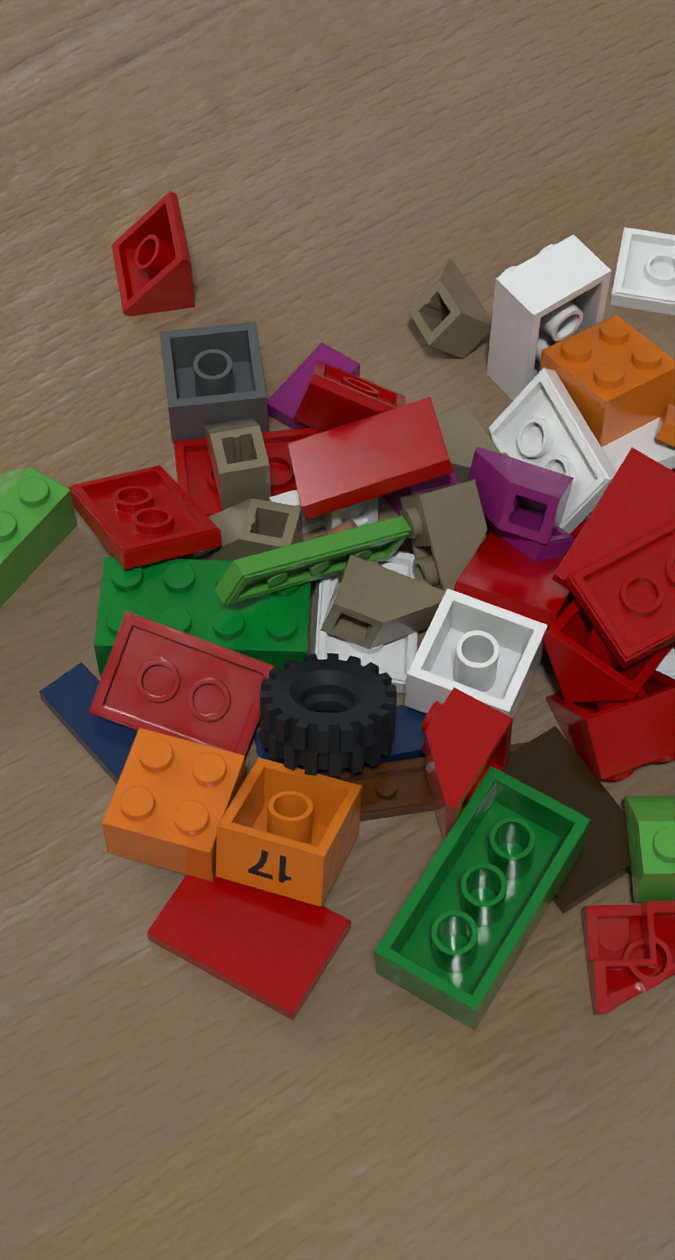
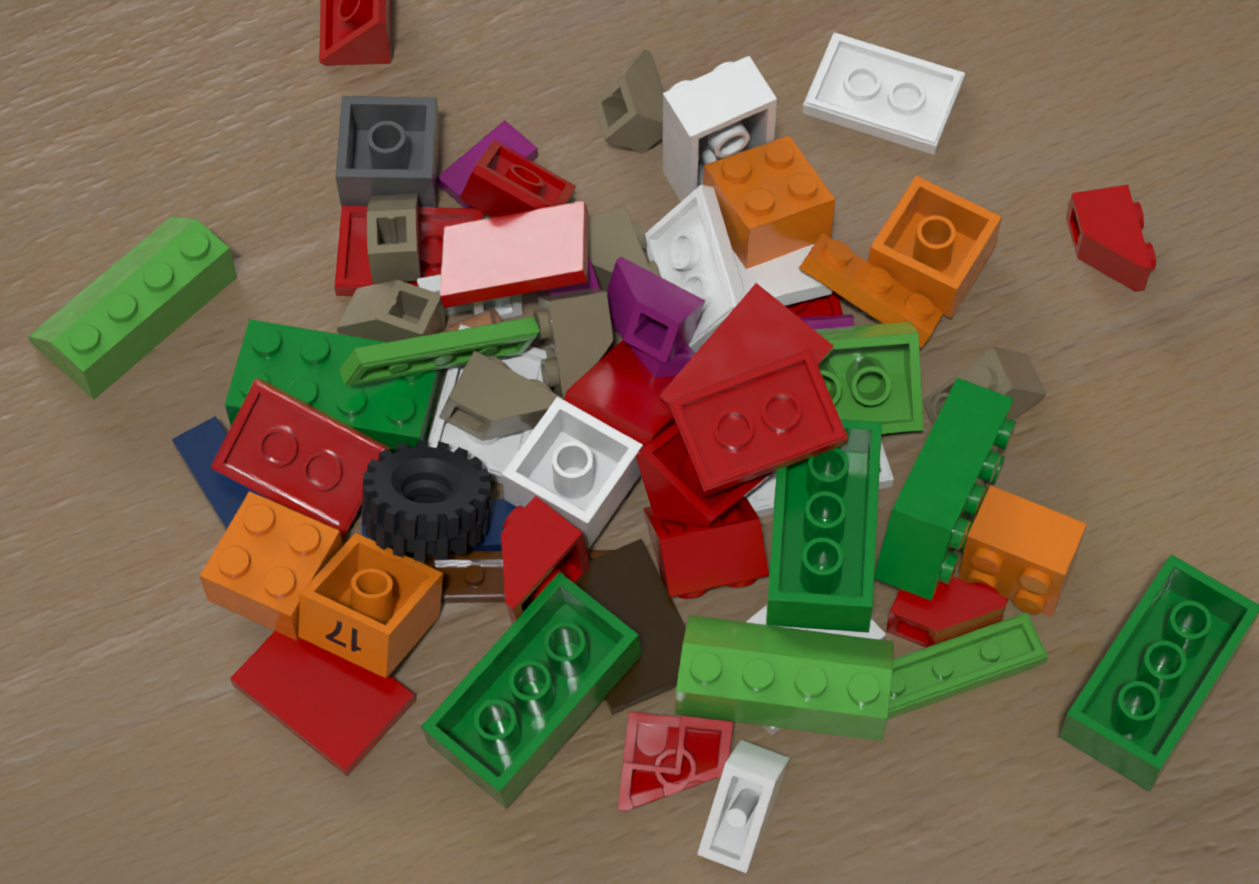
camera: 10 degrees right, 5 degrees up
(144, 517) = (295, 282): red tile -> none

